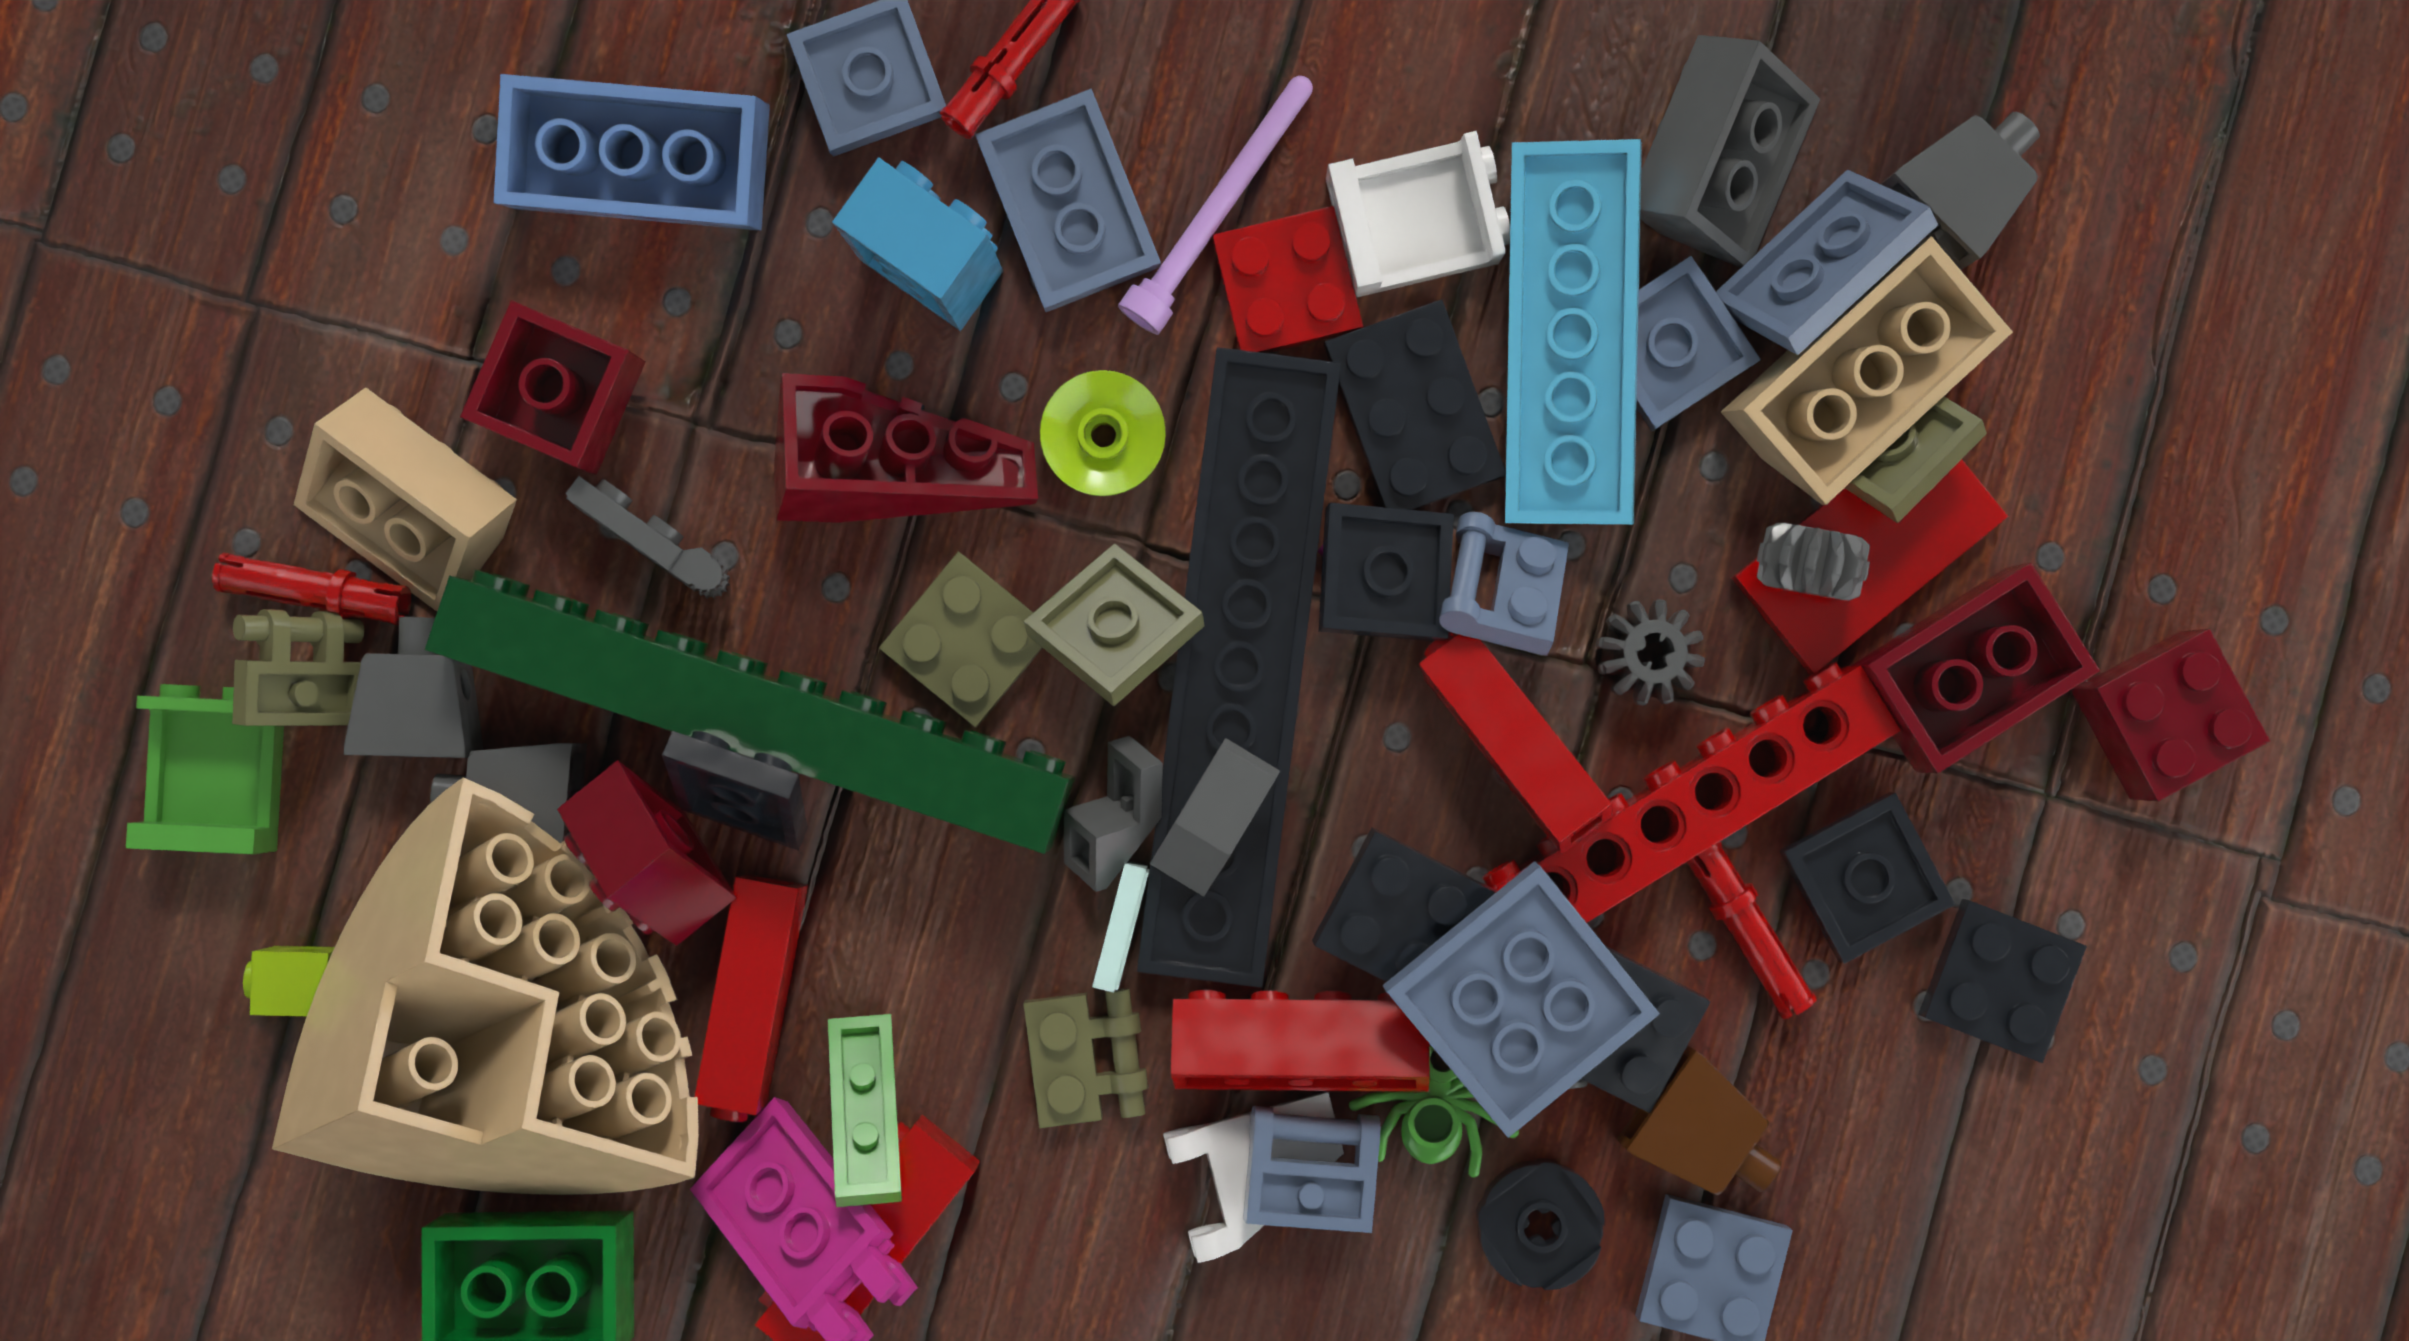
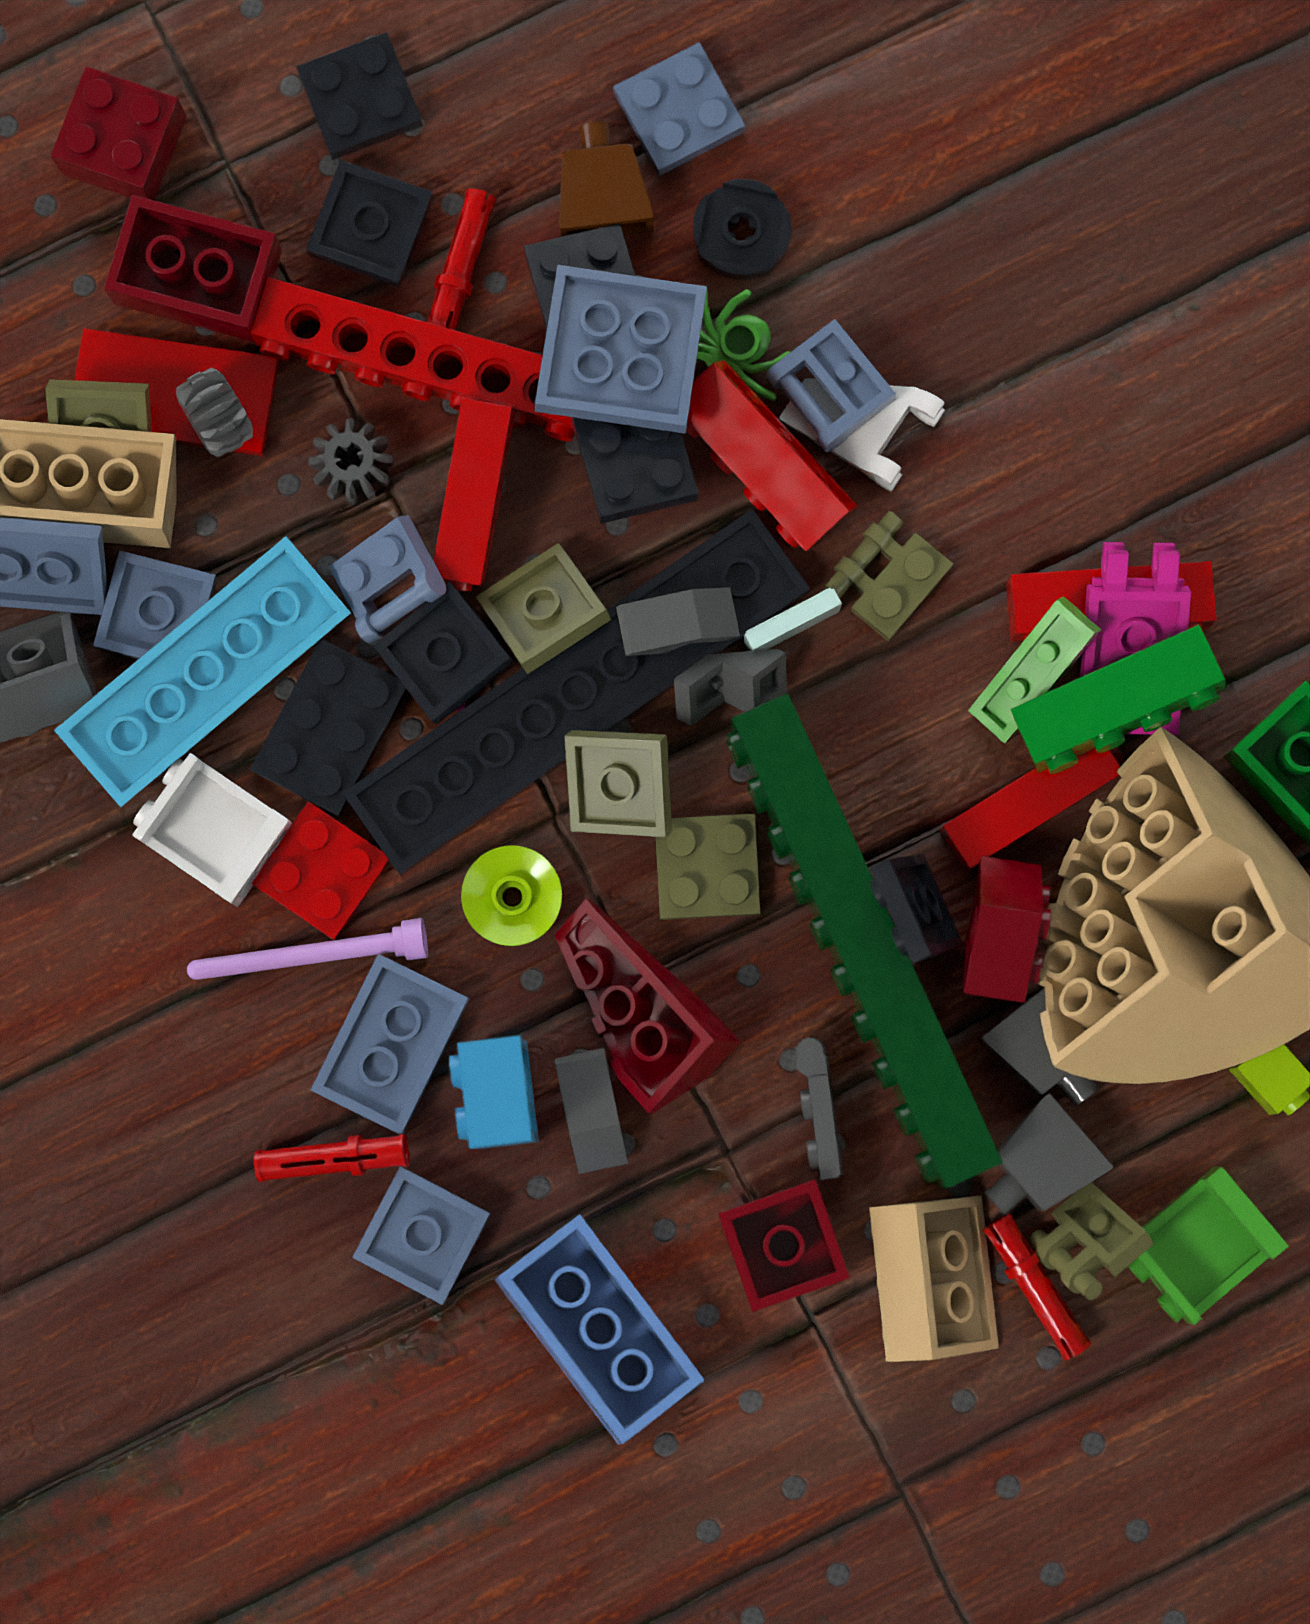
camera: 130 degrees left, 5 degrees down
(754, 1164) = (1119, 699): none -> green brick
(839, 328) = (591, 1111): none -> dark grey slope
(1344, 704) = (543, 608): none -> olive plate

